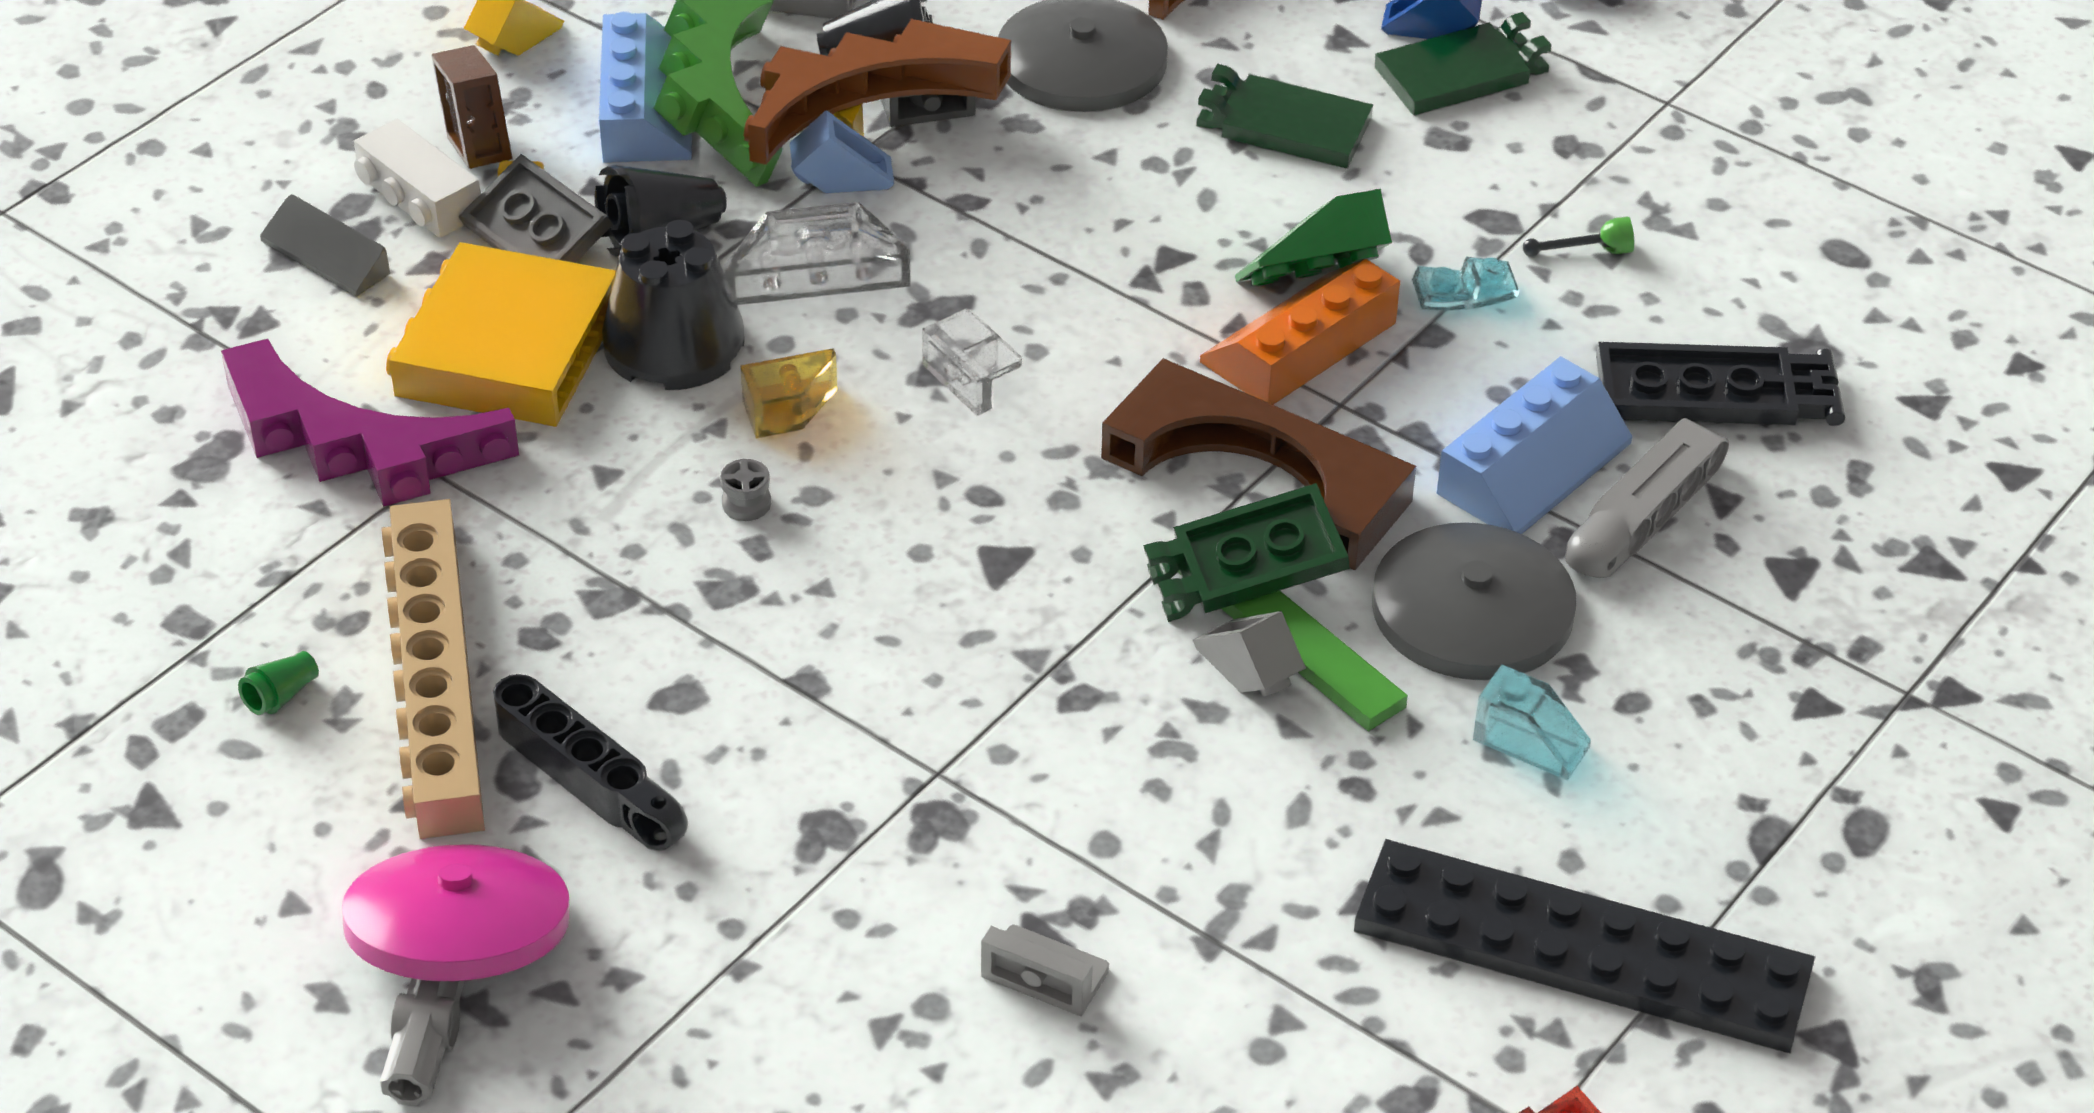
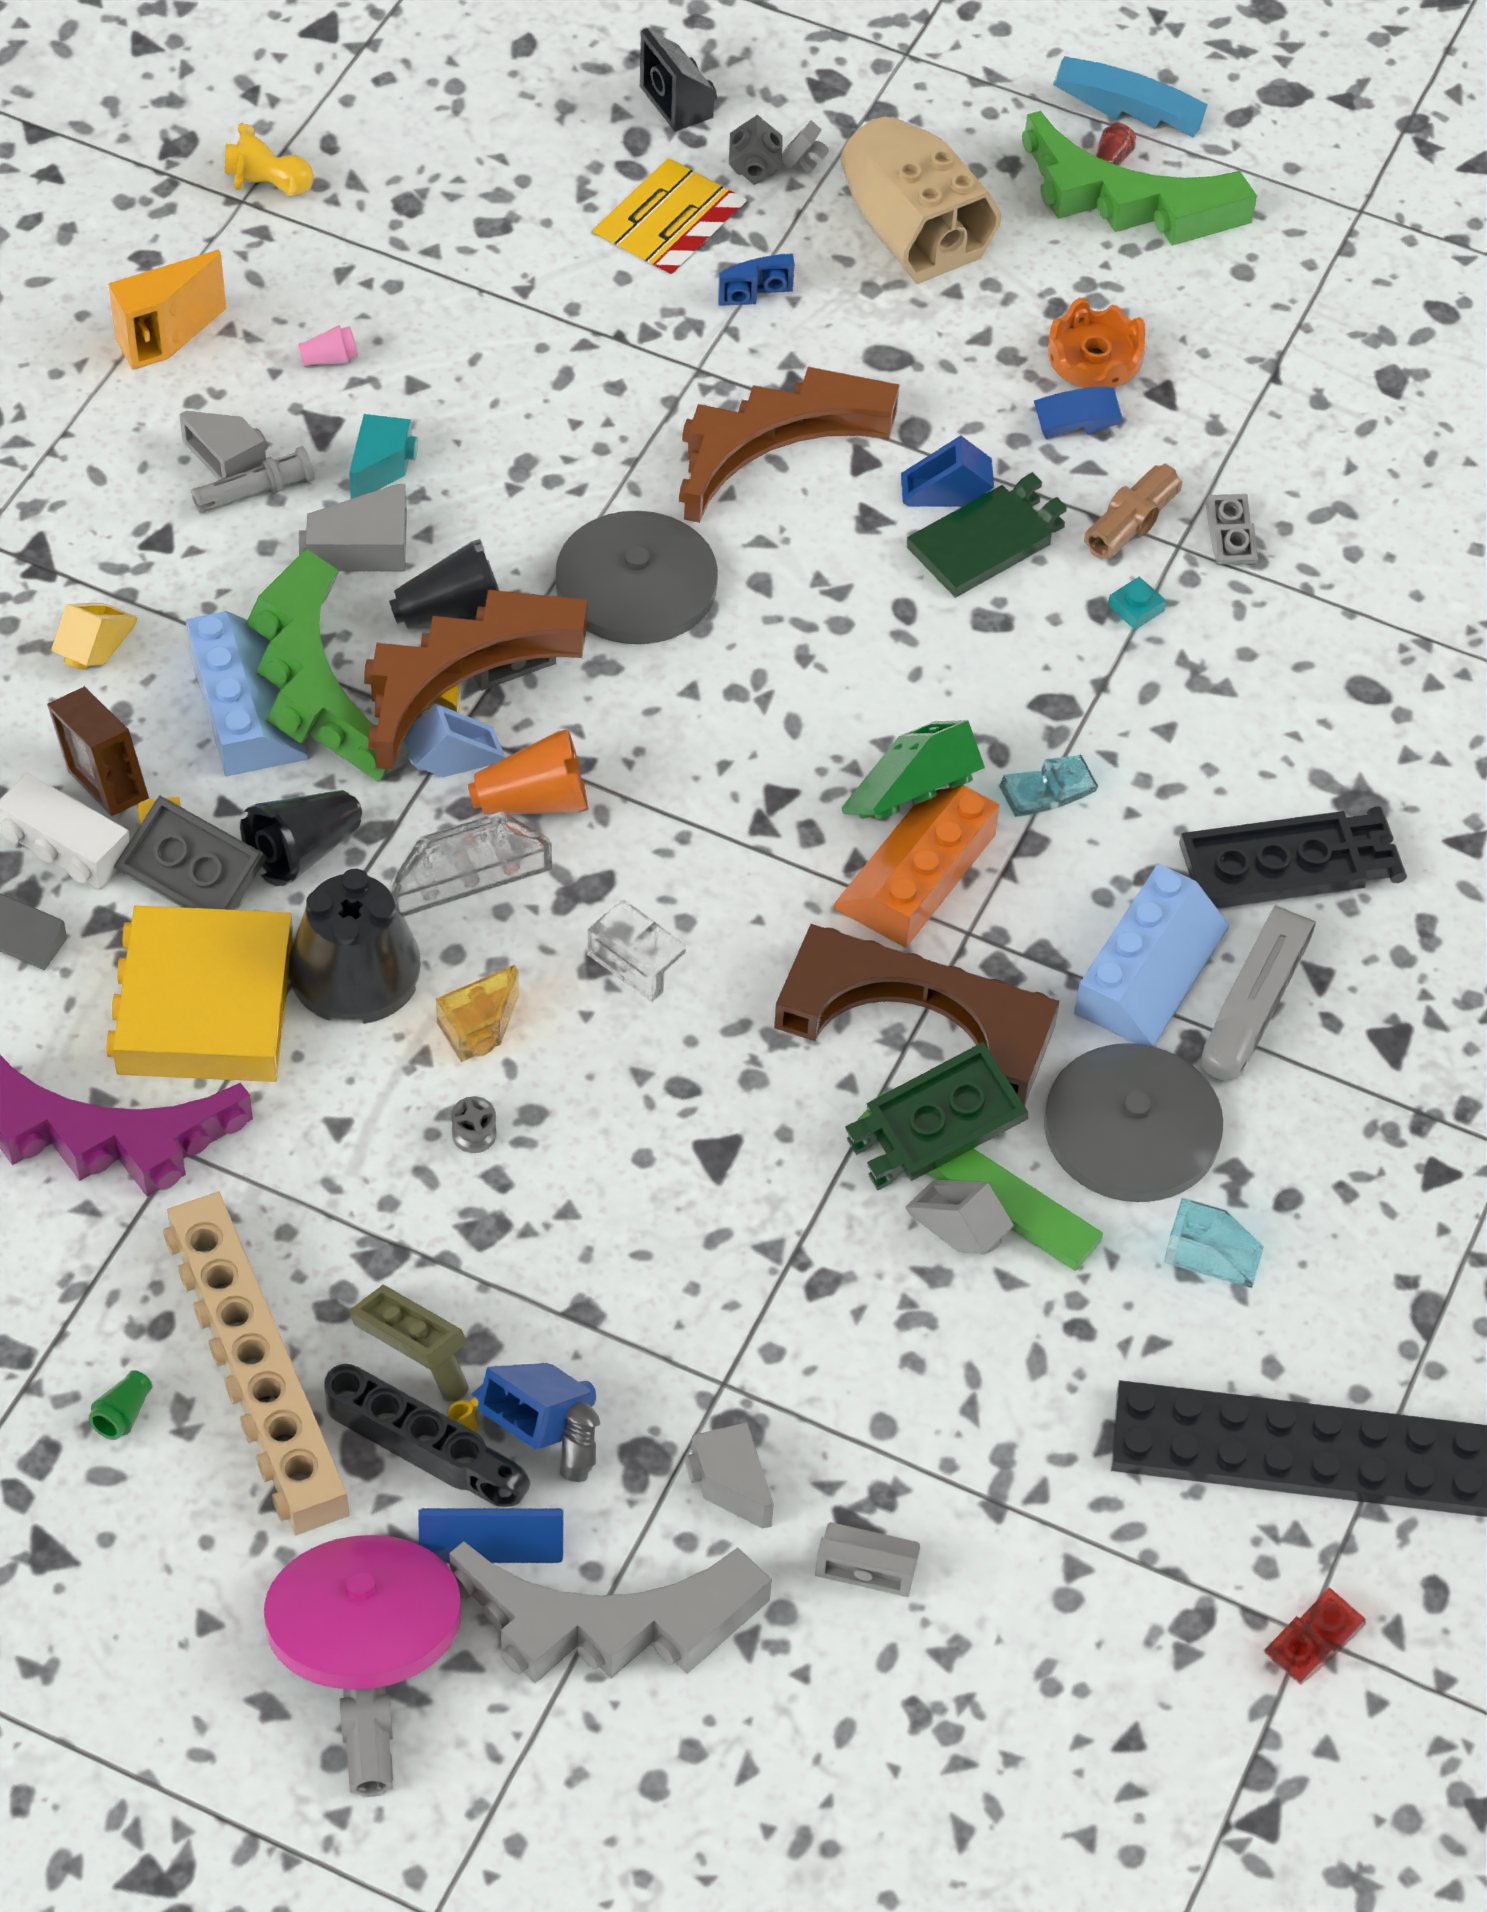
camera: 15 degrees left, 10 degrees up
(614, 663) = (415, 1334): none -> olive piece
(631, 868) = (495, 1533): none -> blue slope
(721, 750) = (540, 1409): none -> blue torso
(729, 983) = (611, 1630): none -> light grey arch
(912, 852) = (731, 1473): none -> light grey slope
(917, 196) = (533, 780): none -> orange cone
(1284, 117) = (842, 622): dark green tile -> none
(1608, 142) = (1137, 603): none -> teal plate
(1615, 237) = (1168, 710): hinge -> none
(1623, 62) = (1133, 511): none -> medium nougat piece
(1728, 92) = (1231, 529): none -> light grey slope

